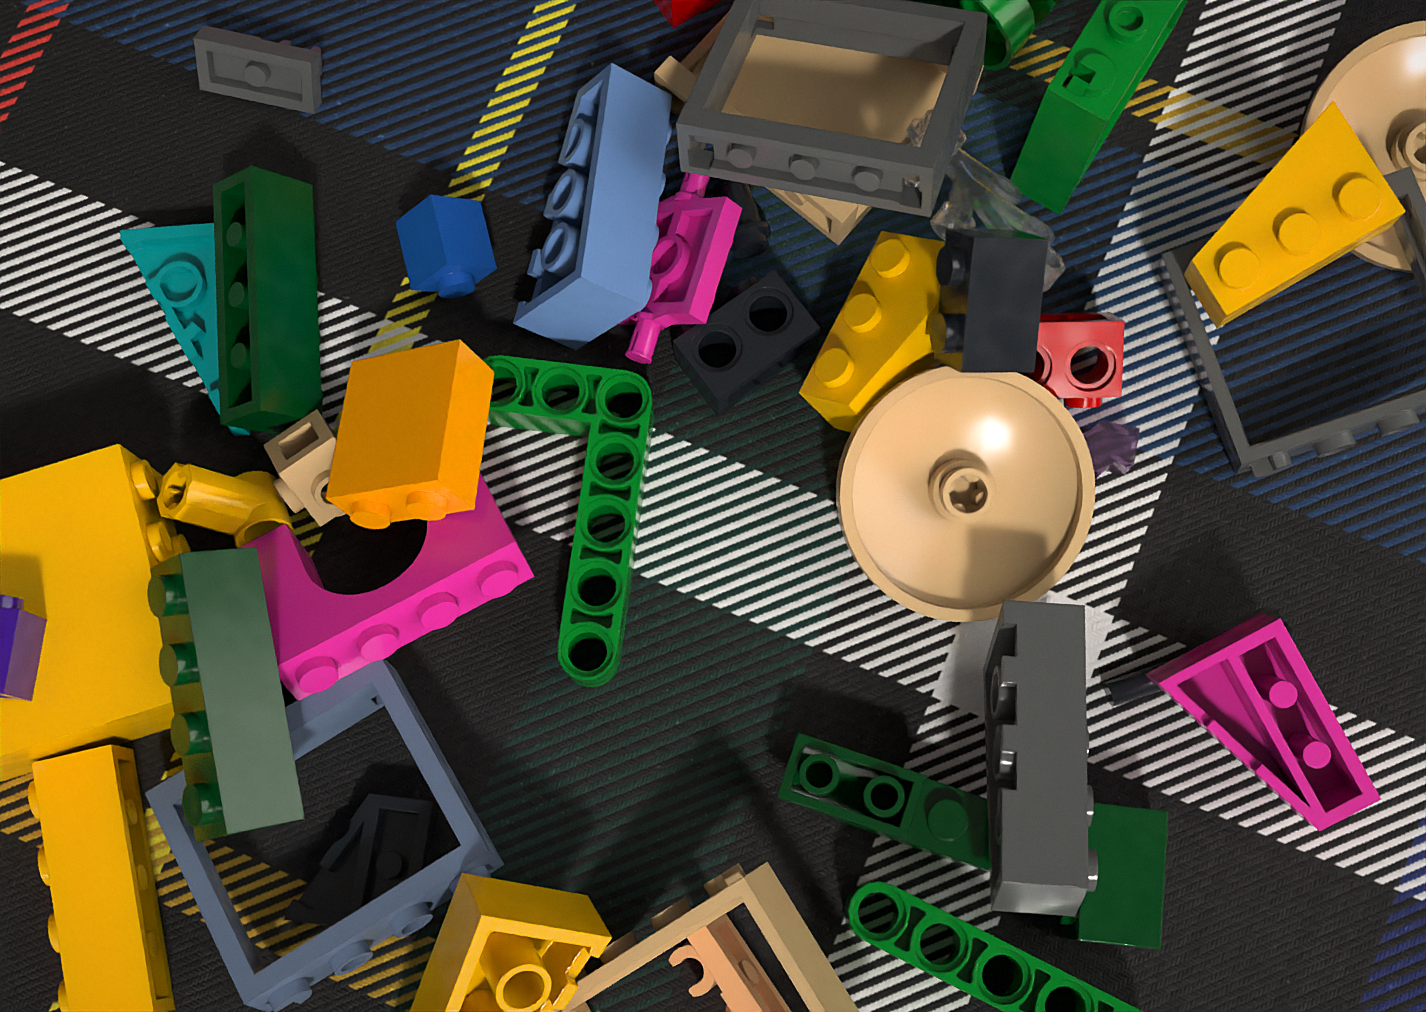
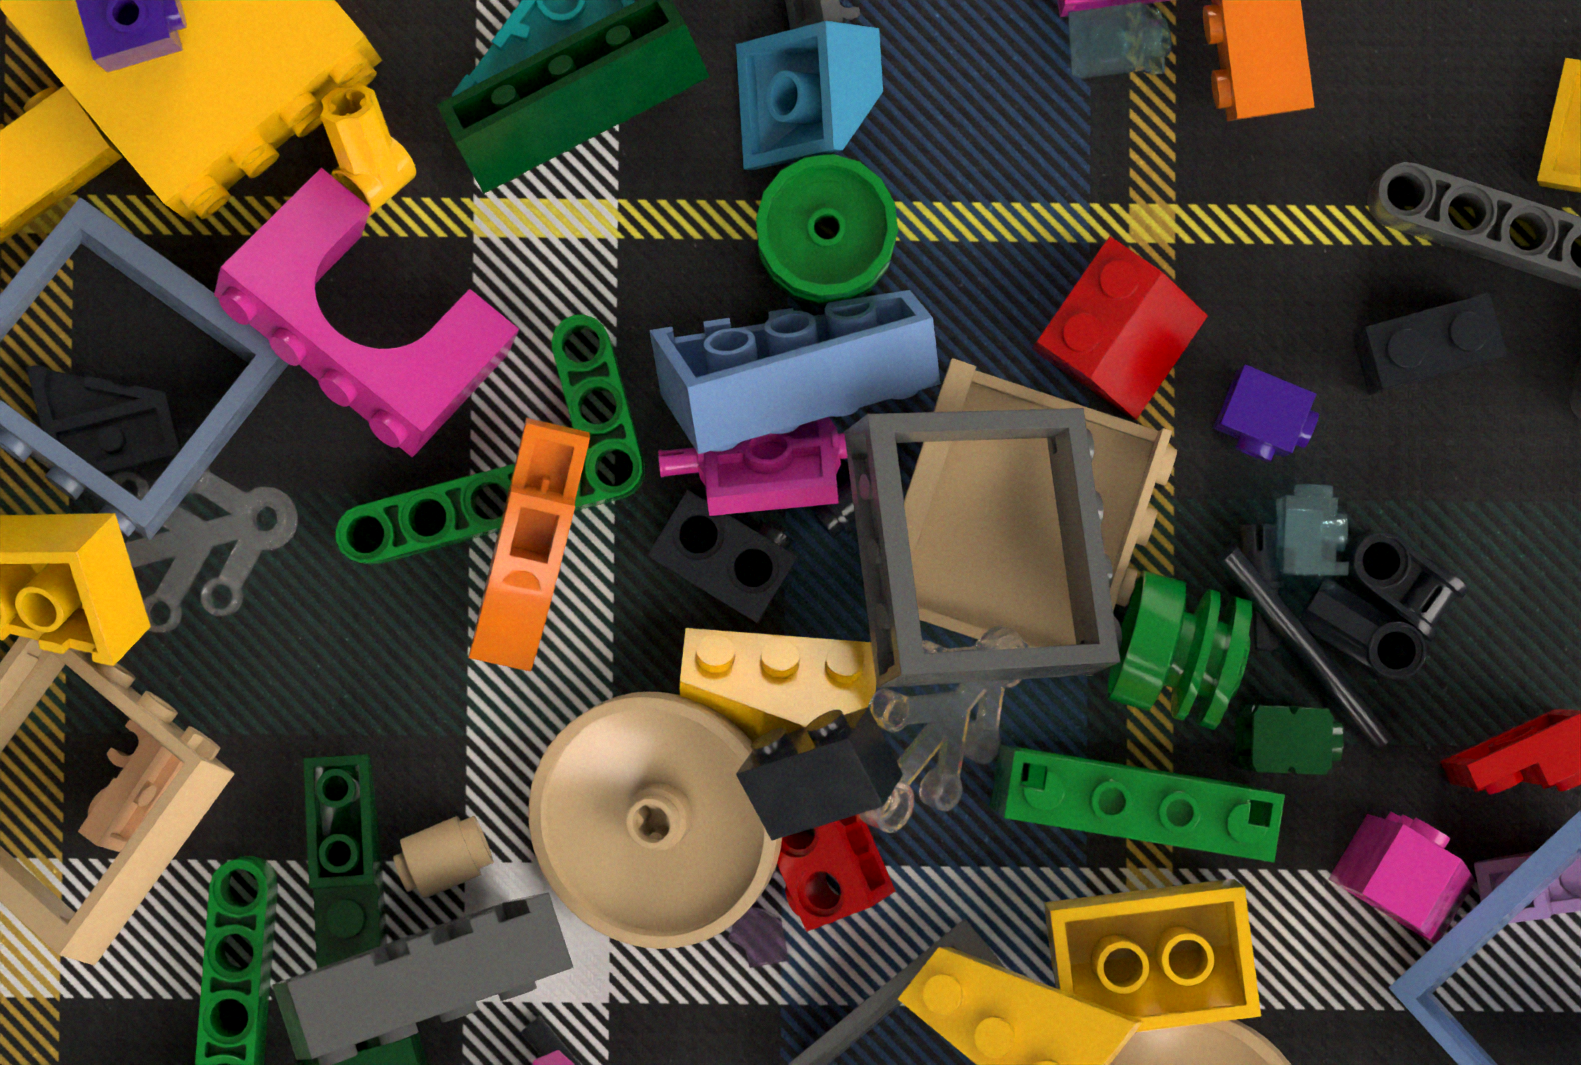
camera: 70 degrees right, 10 degrees up
(224, 692) = (181, 239): dark green brick -> none
(304, 463) = (435, 213): tan brick -> none
(362, 112) = (806, 90): none -> dark azure slope
(411, 435) = (487, 291): light orange brick -> none
(446, 246) = (698, 234): blue brick -> none
(493, 134) = (826, 191): none -> green wheel
(520, 826) = (194, 538): none -> clear plant
(666, 495) = (529, 544): none -> orange slope
(921, 707) = (443, 856): none -> tan brick
(1249, 102) = (1158, 953): none -> yellow slope

